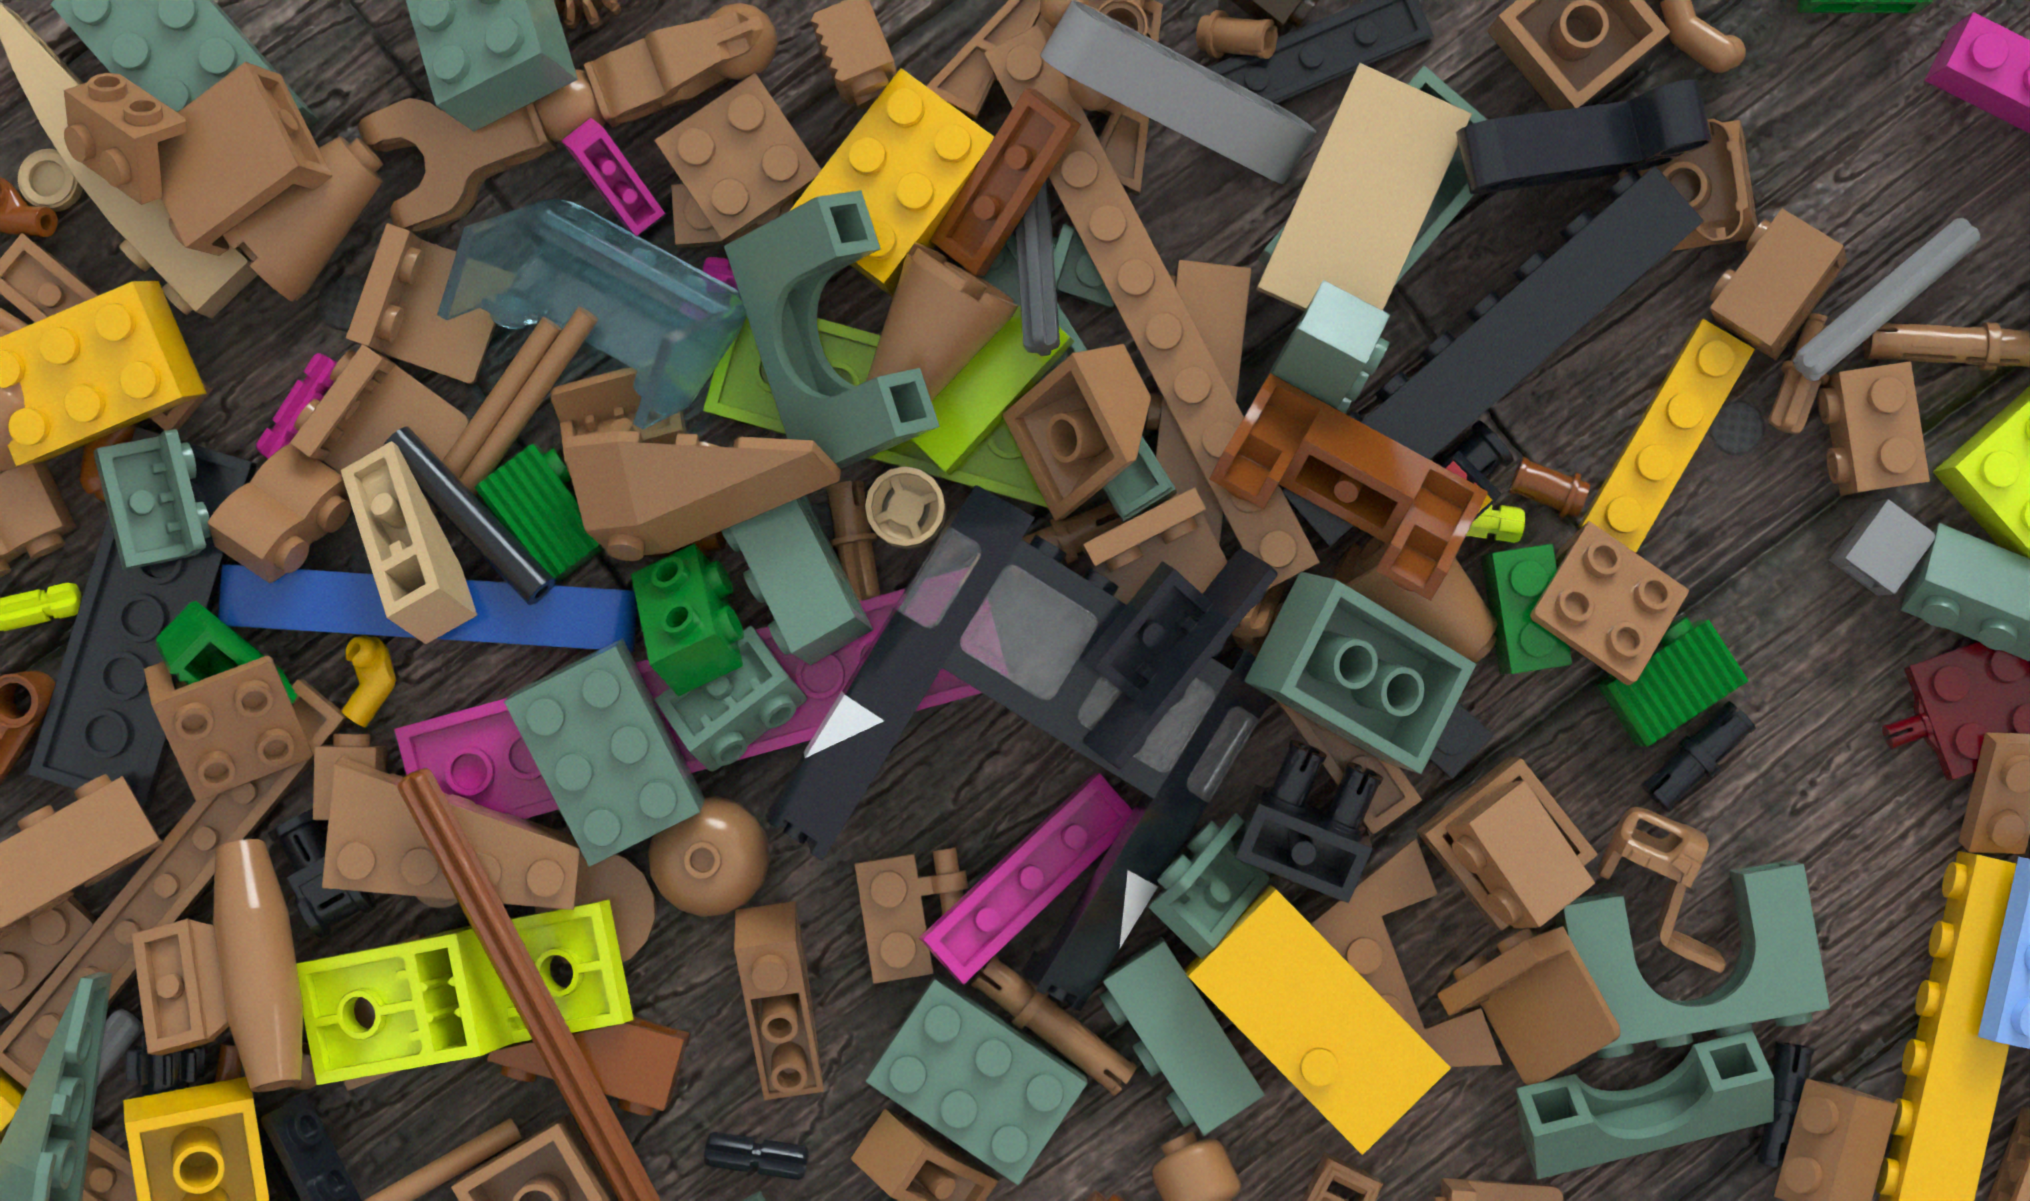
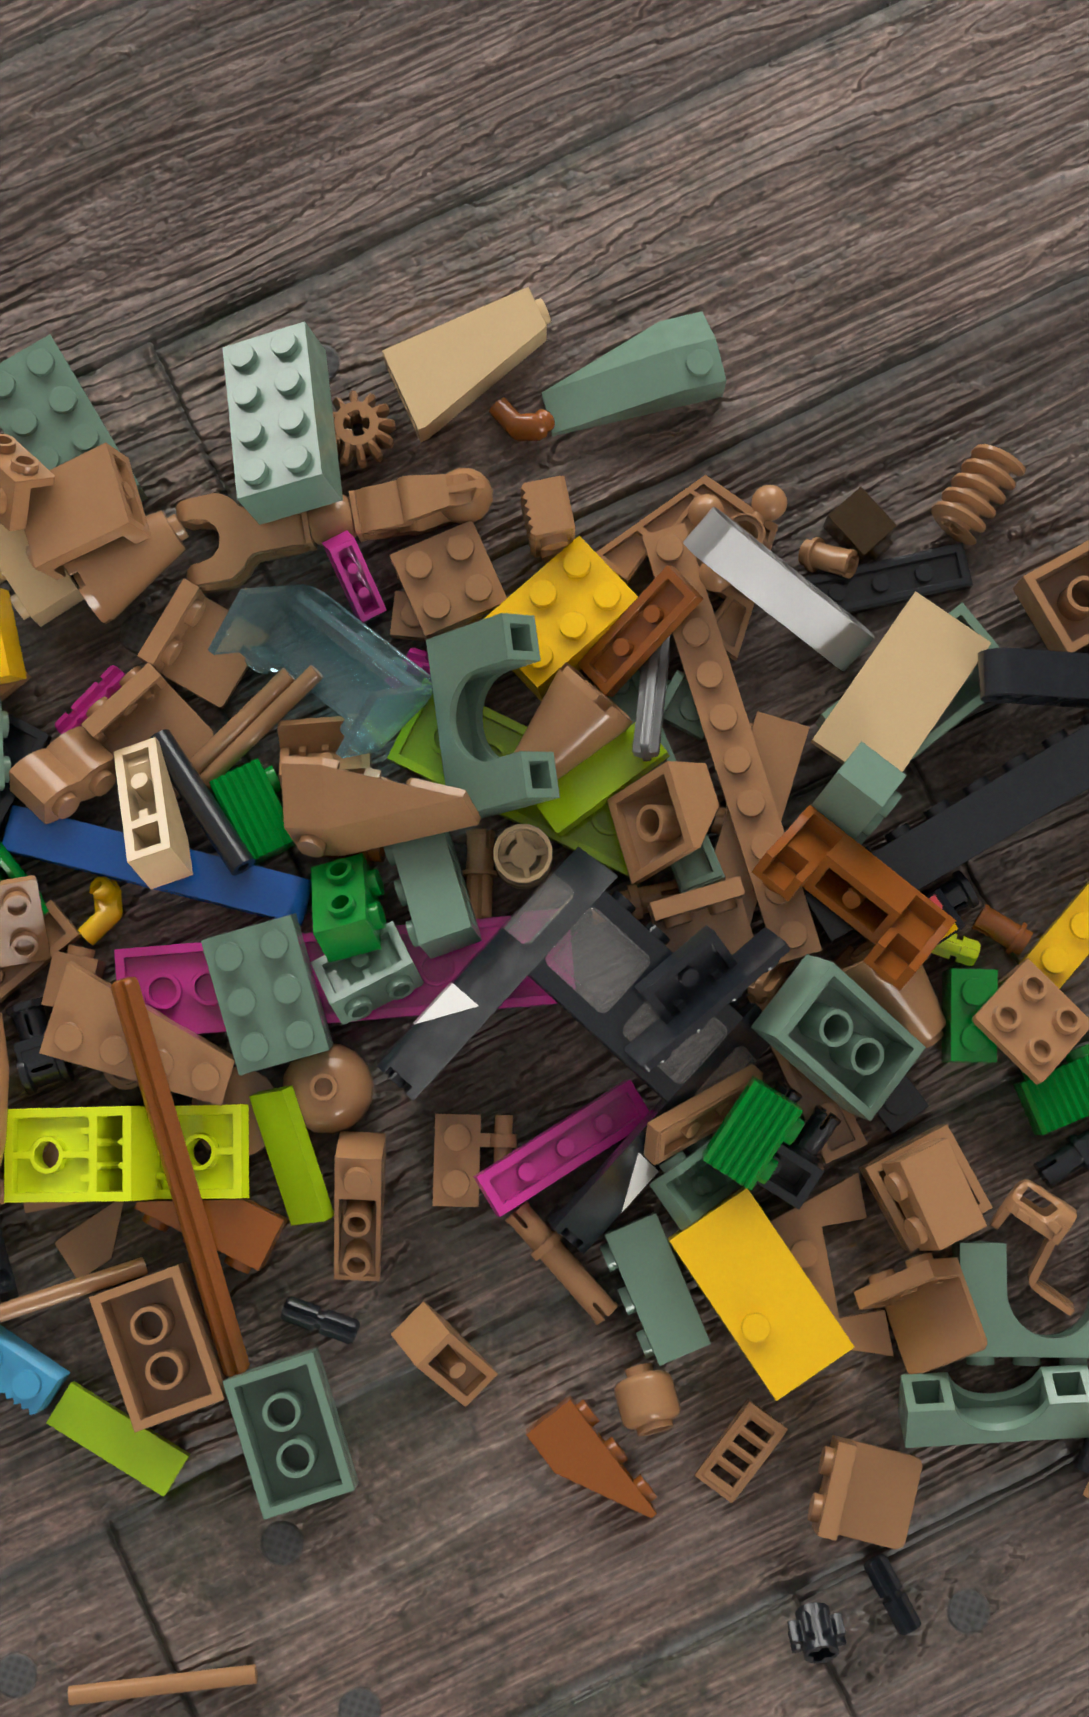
camera: 15 degrees right, 5 degrees down
(440, 1111) = (92, 1241): none -> medium nougat sticker
(678, 953) = (291, 1155): none -> lime tile
(977, 1078) = (497, 1292): sand green brick -> none
(1202, 804) = (694, 1117): none -> medium nougat tile
(1272, 819) = (753, 1133): none -> green brick

